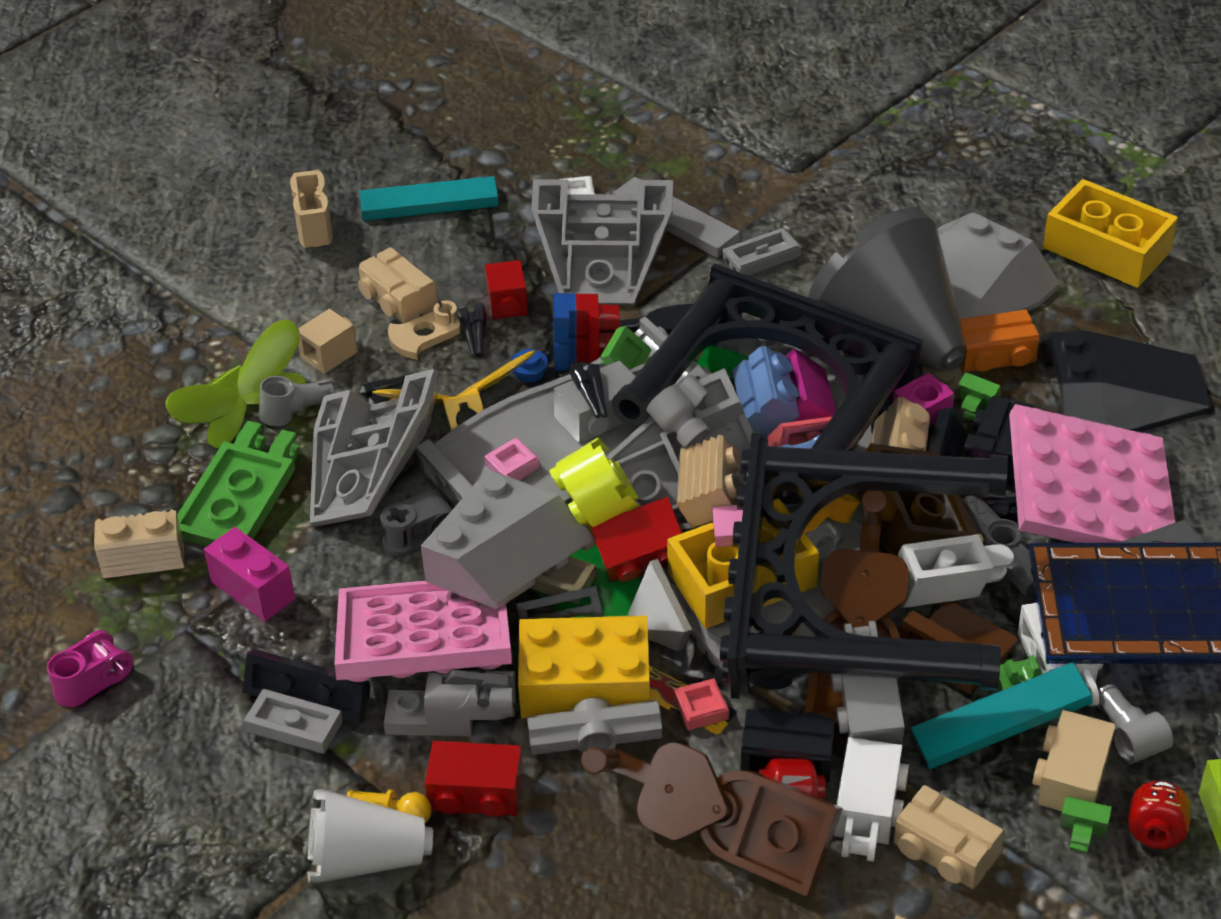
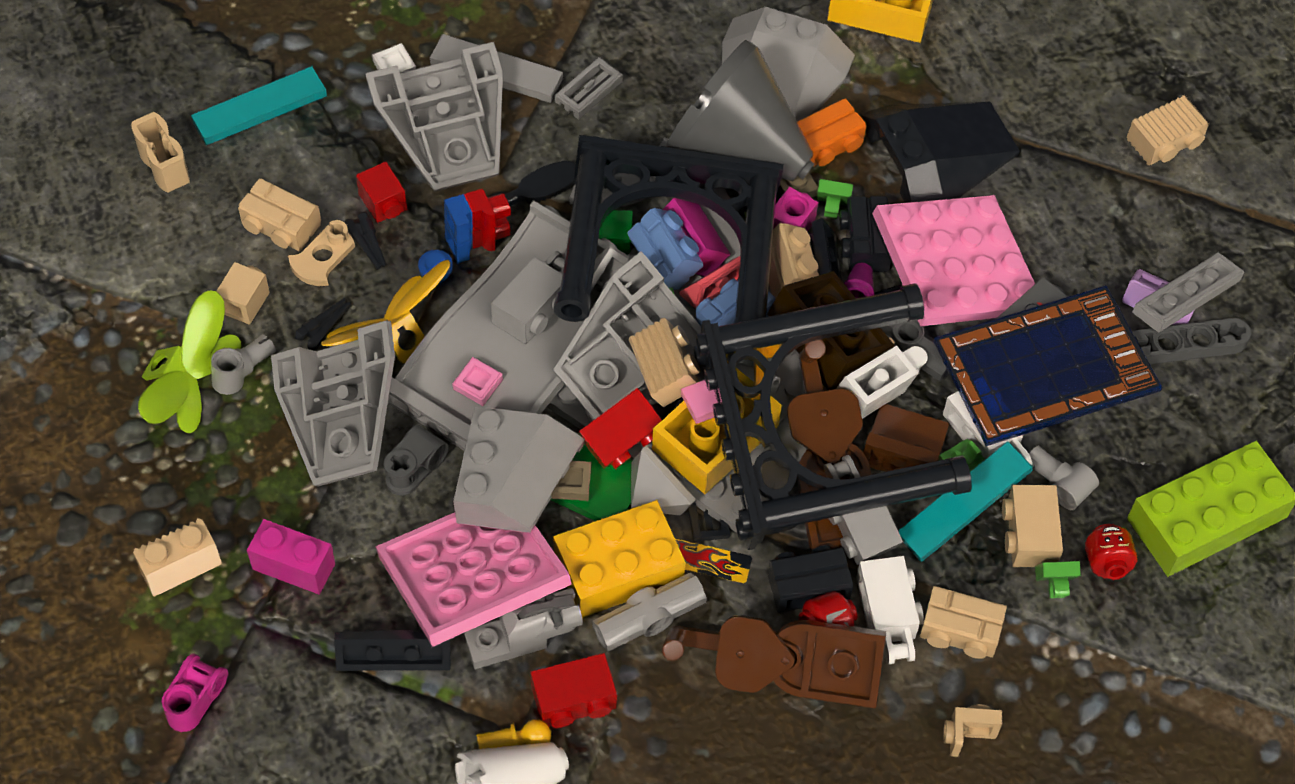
camera: 25 degrees left, 15 degrees up
(239, 486) = (235, 473): bright green tile -> none
(293, 721) = (396, 685): light grey plate -> none
(590, 386) = (521, 290): black piece -> none
(594, 592) = (576, 503): black tile -> none
(595, 484) = (571, 393): neon yellow brick -> none
(626, 348) = (531, 242): bright green tile -> none
(675, 408) = (614, 303): light grey piece -> none
(701, 704) = (723, 561): coral tile -> none

